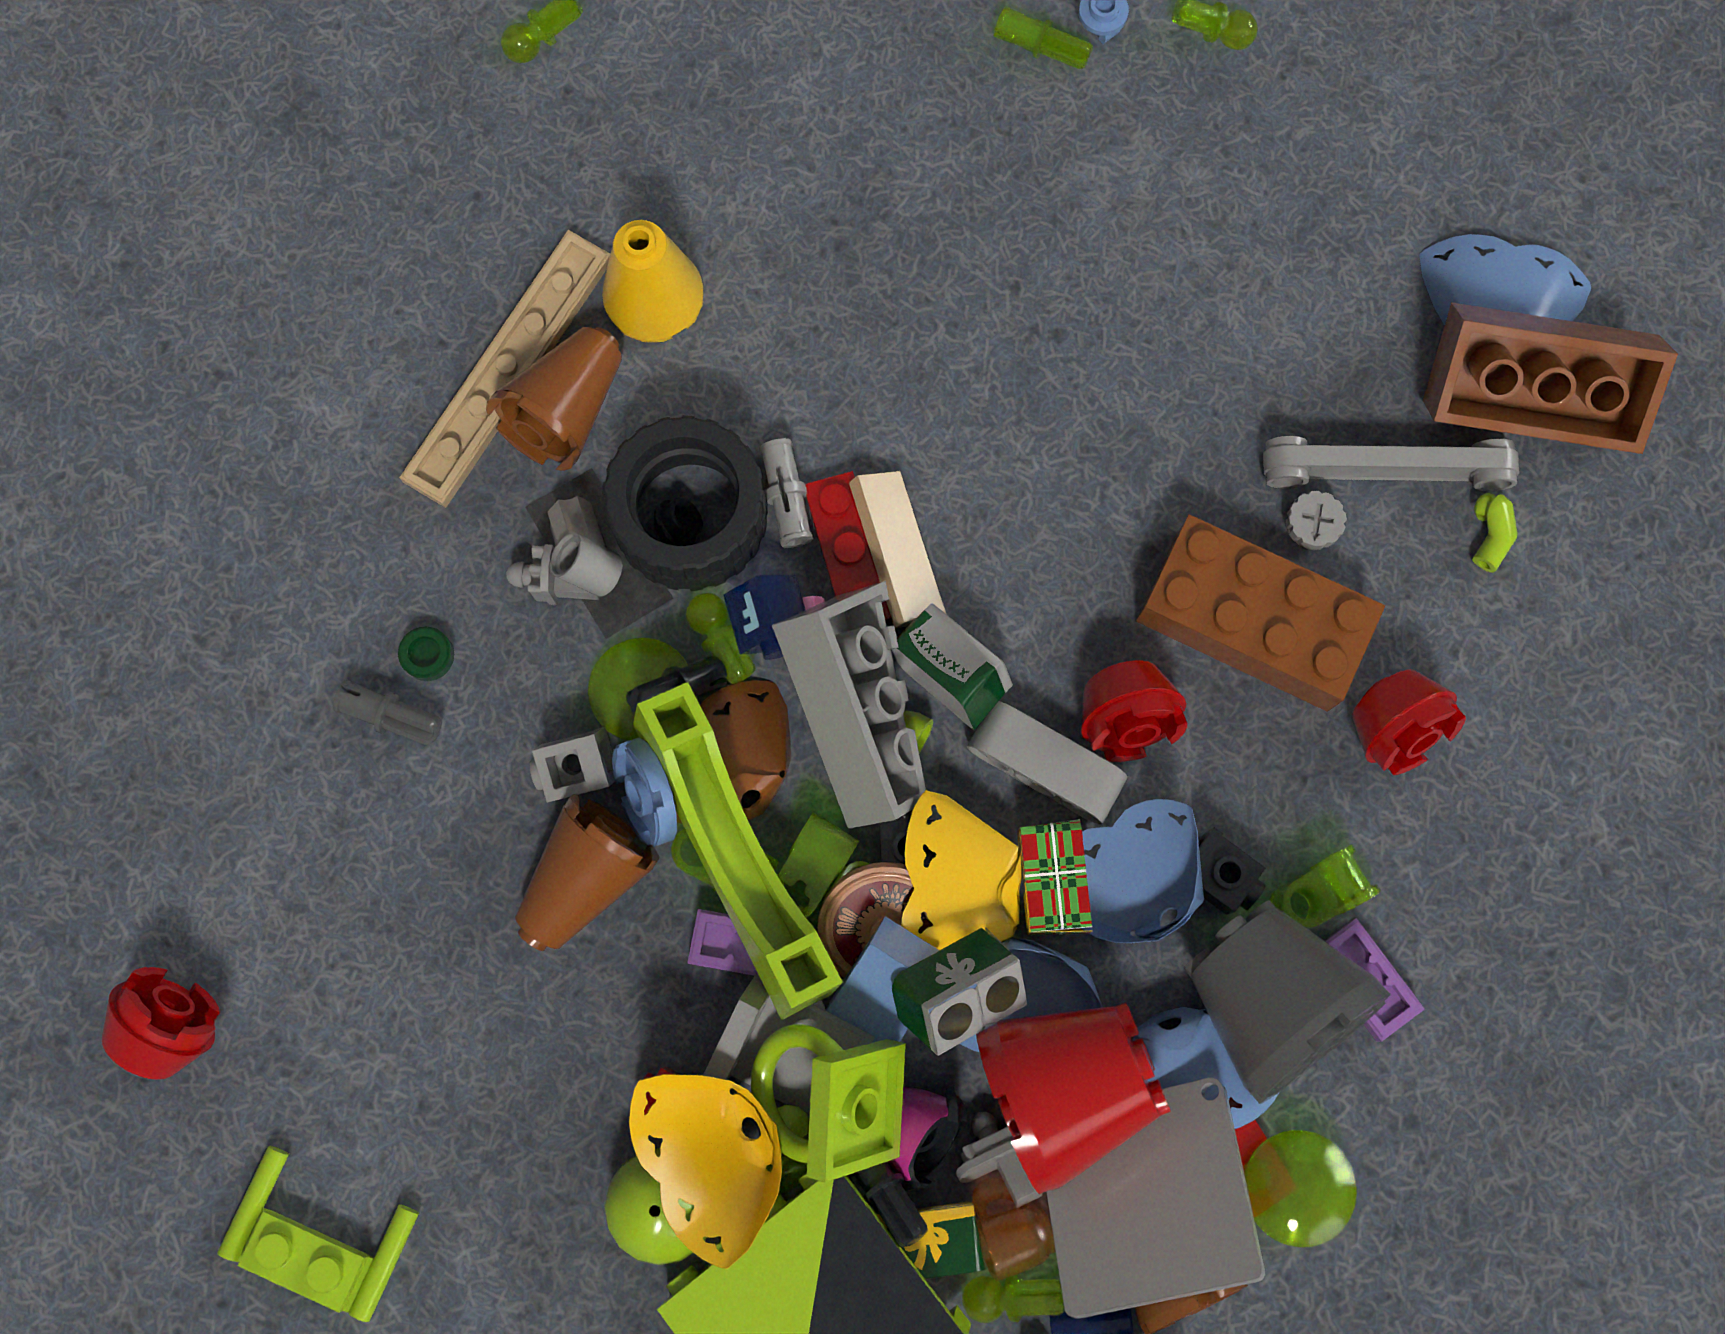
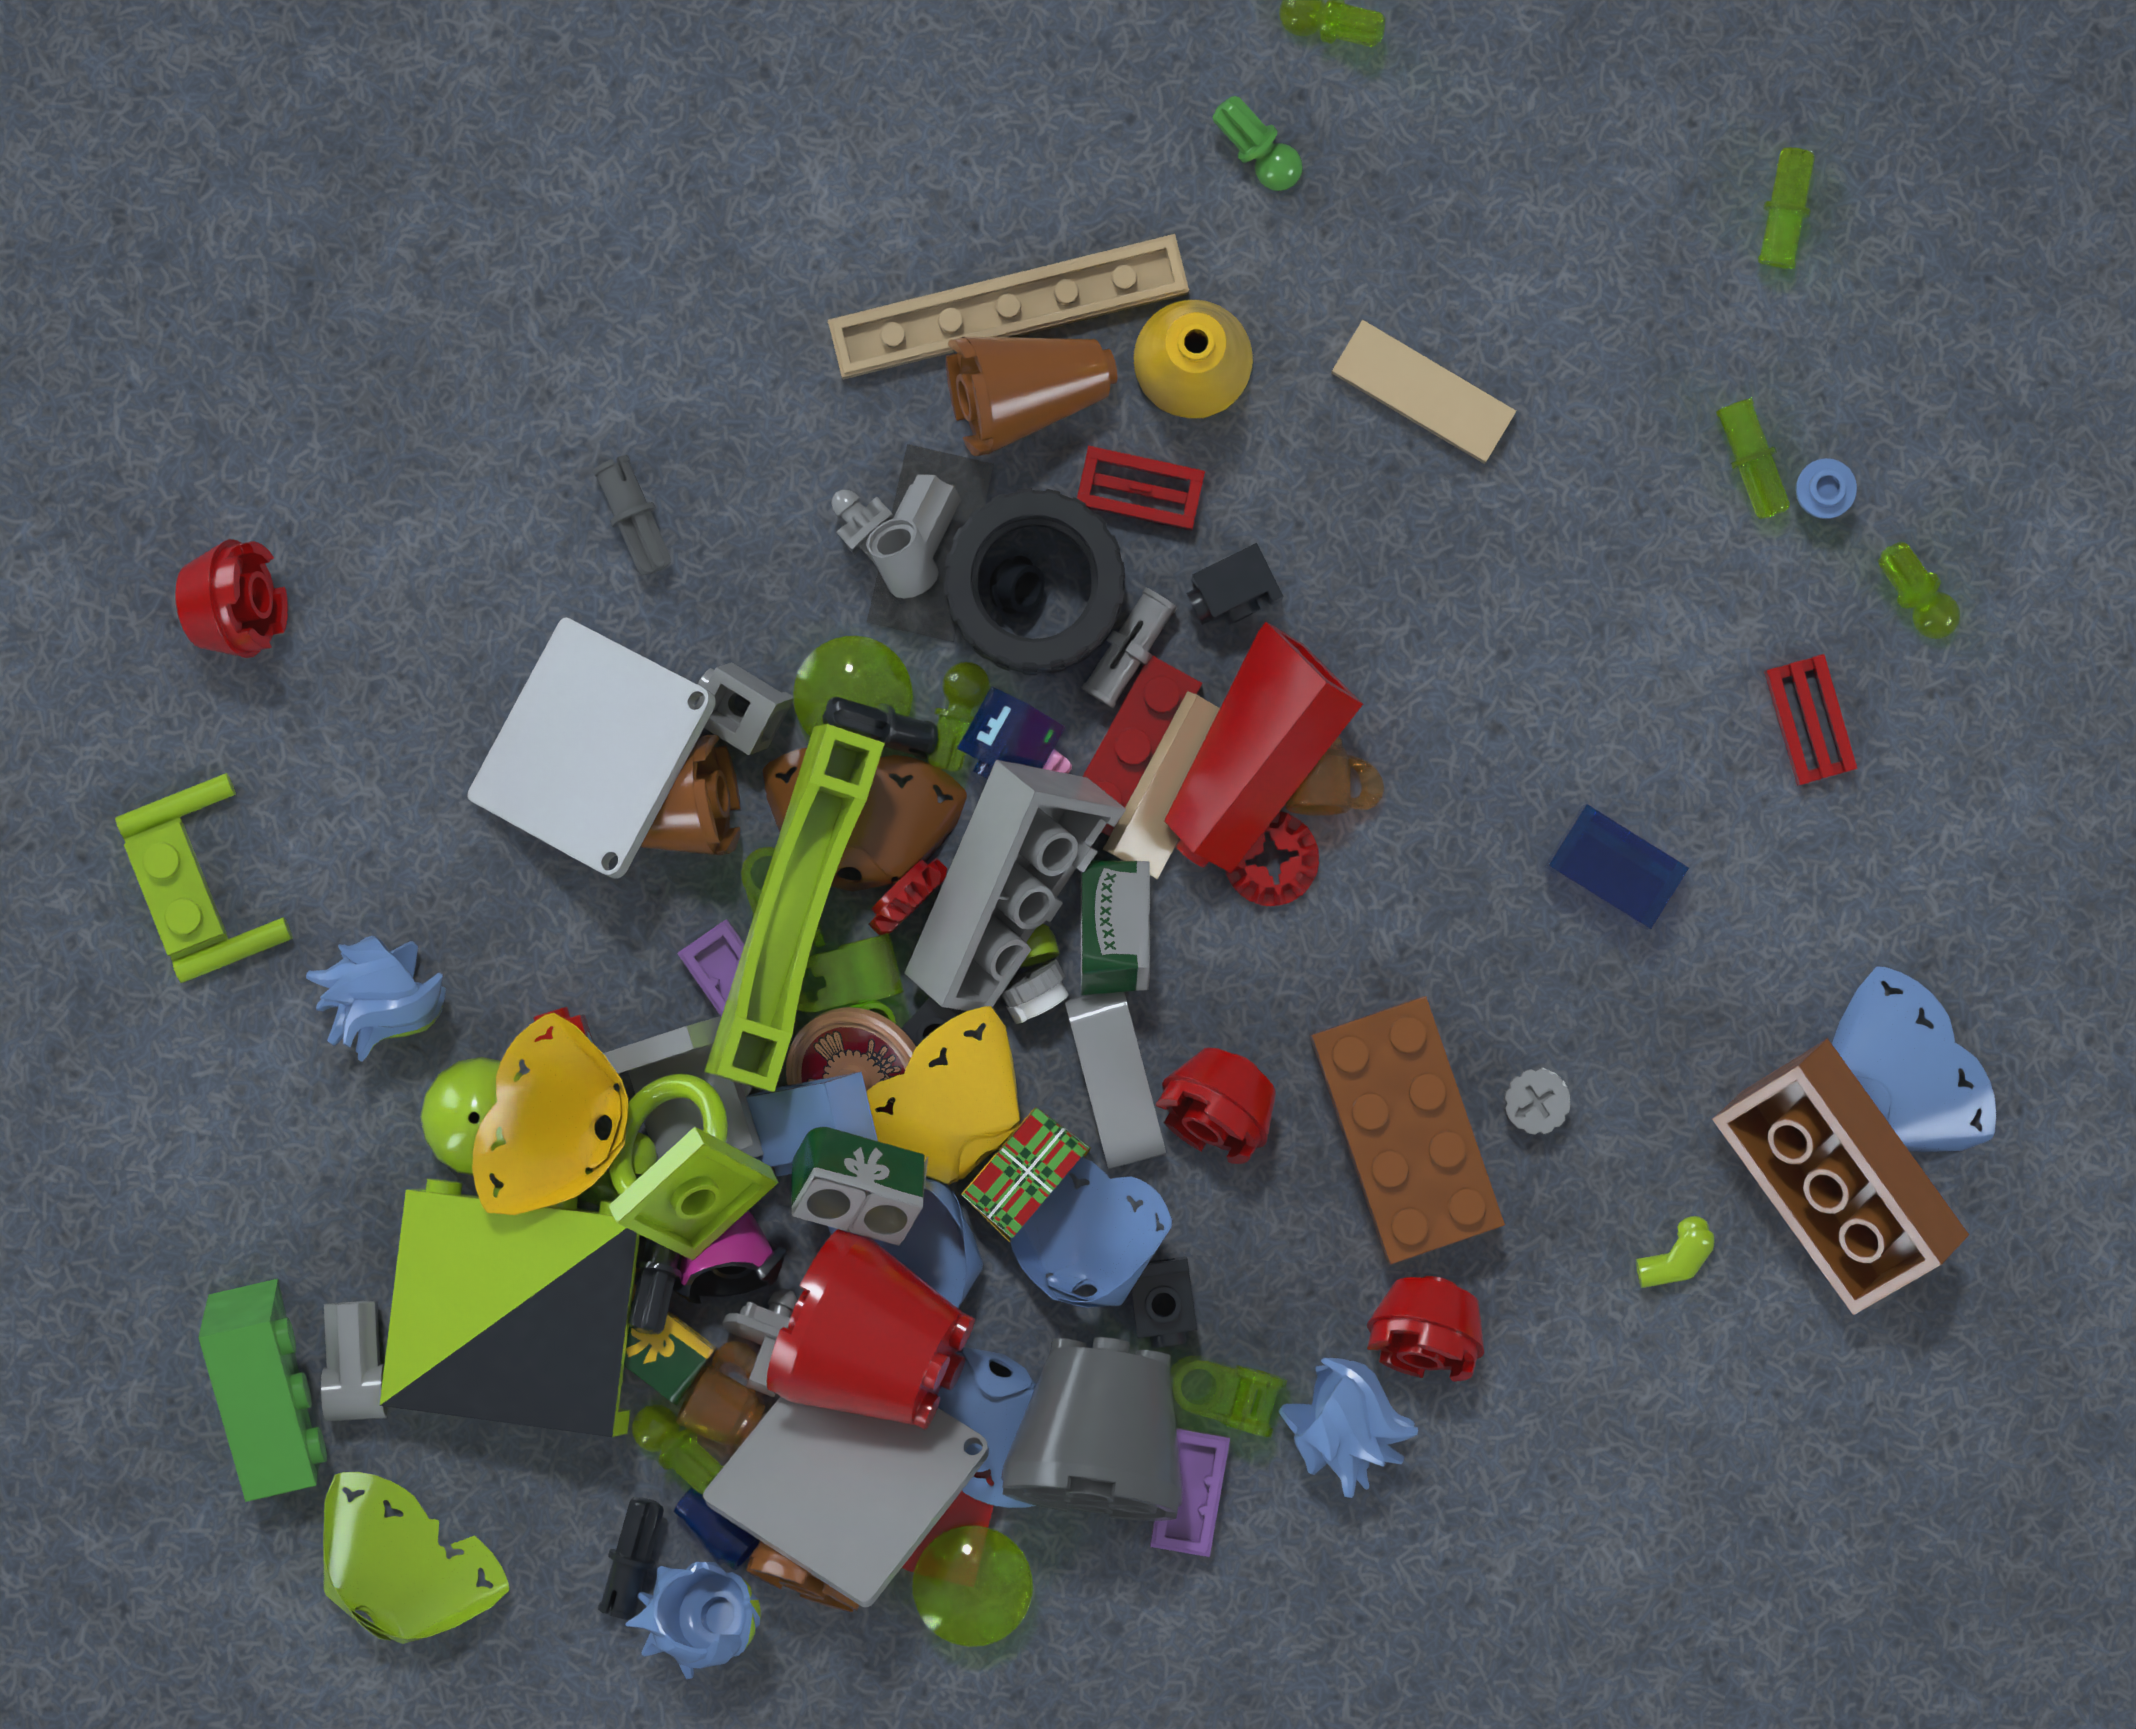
camera: 50 degrees right, 10 degrees up
(426, 653) = (710, 492): dark green tile -> none
(500, 883) = (591, 748): none -> piece
(509, 1192) = (377, 994): none -> medium blue hair
(591, 137) = (1276, 164): none -> bright green axle
(649, 796) = (773, 791): medium blue tile -> none
(693, 375) = (1189, 499): none -> red tile
(800, 776) = (907, 895): none -> red gear
(811, 182) = (1423, 391): none -> tan tile
(814, 393) = (1233, 587): none -> black brick
(929, 469) = (1258, 749): none -> red slope
(942, 758) = (1035, 991): none -> light grey piece
(984, 455) = (1329, 785): none -> clear orange piece
(1009, 558) = (1294, 876): none -> red gear
(1214, 332) = (1617, 866): none -> clear blue panel
(1235, 143) = (1830, 702): none -> red tile
(1419, 831) = (1347, 1423): none -> medium blue hair
(1488, 463) = (1729, 1197): light grey piece -> none

